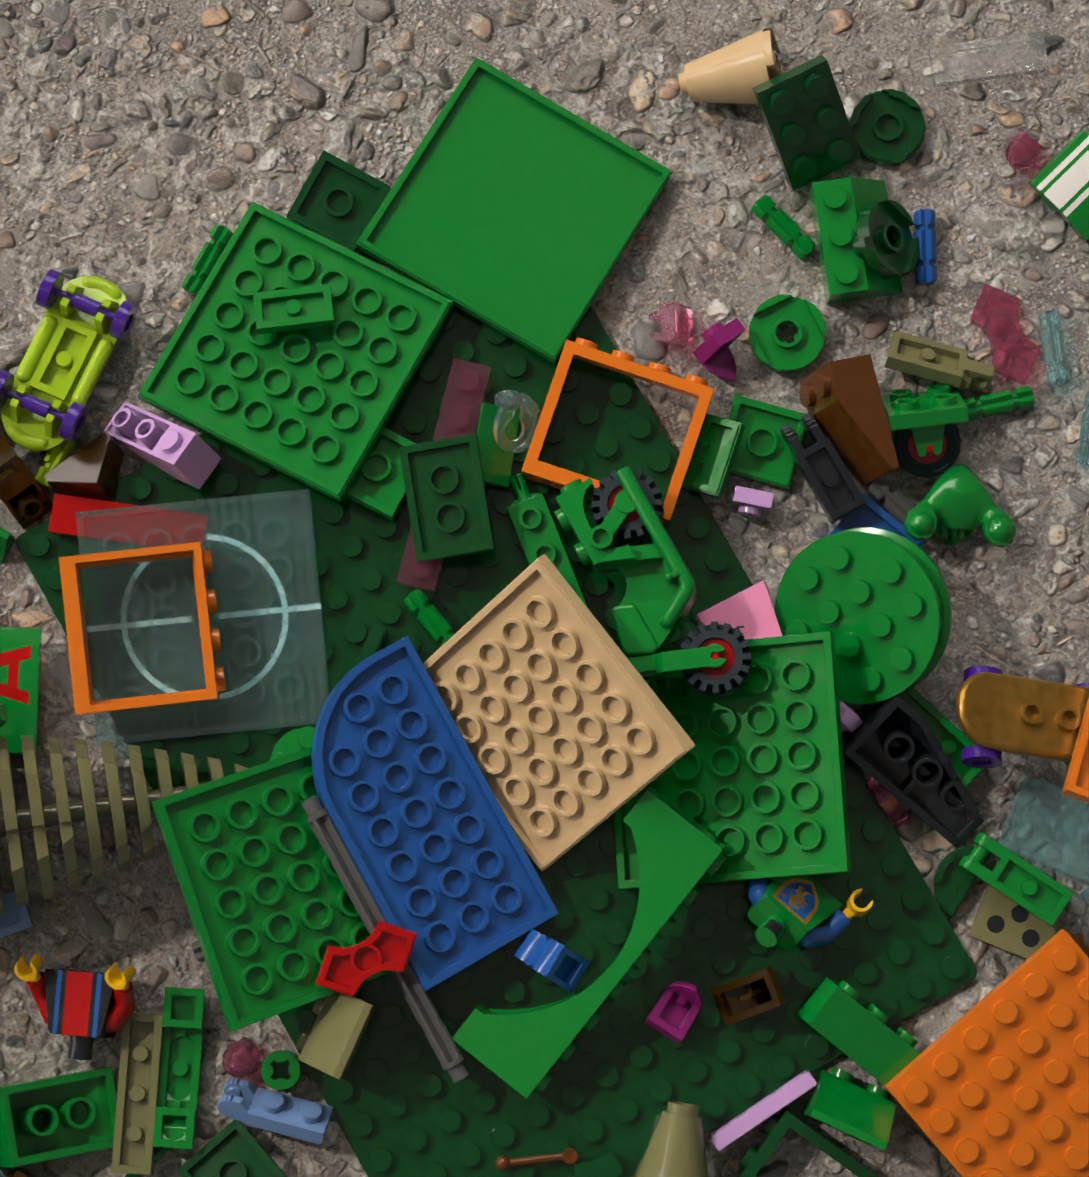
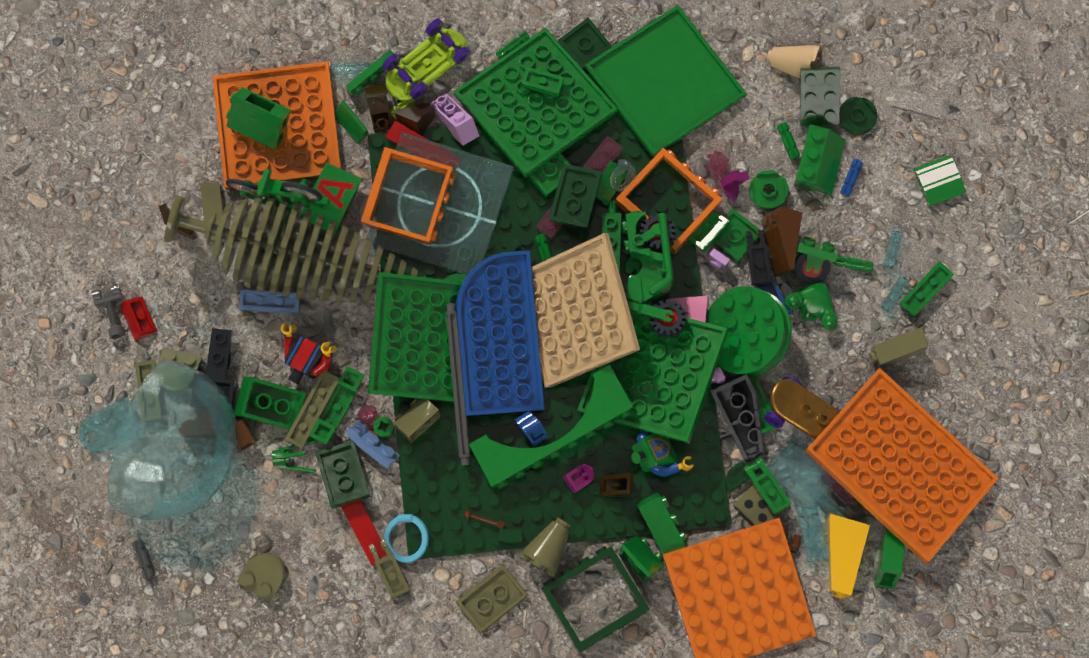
camera: 25 degrees right, 5 degrees down
(382, 950) = (454, 387): red tile -> none
(763, 1109) = (600, 542): lavender tile -> none
(886, 239) = (834, 173): dark green plate -> none
(887, 802) = (722, 425): clear pink tile -> none
(938, 362) = (834, 233): olive hinge -> none
(998, 318) = (872, 242): clear pink tile -> none
(1023, 151) = (917, 152): clear pink plate -> none

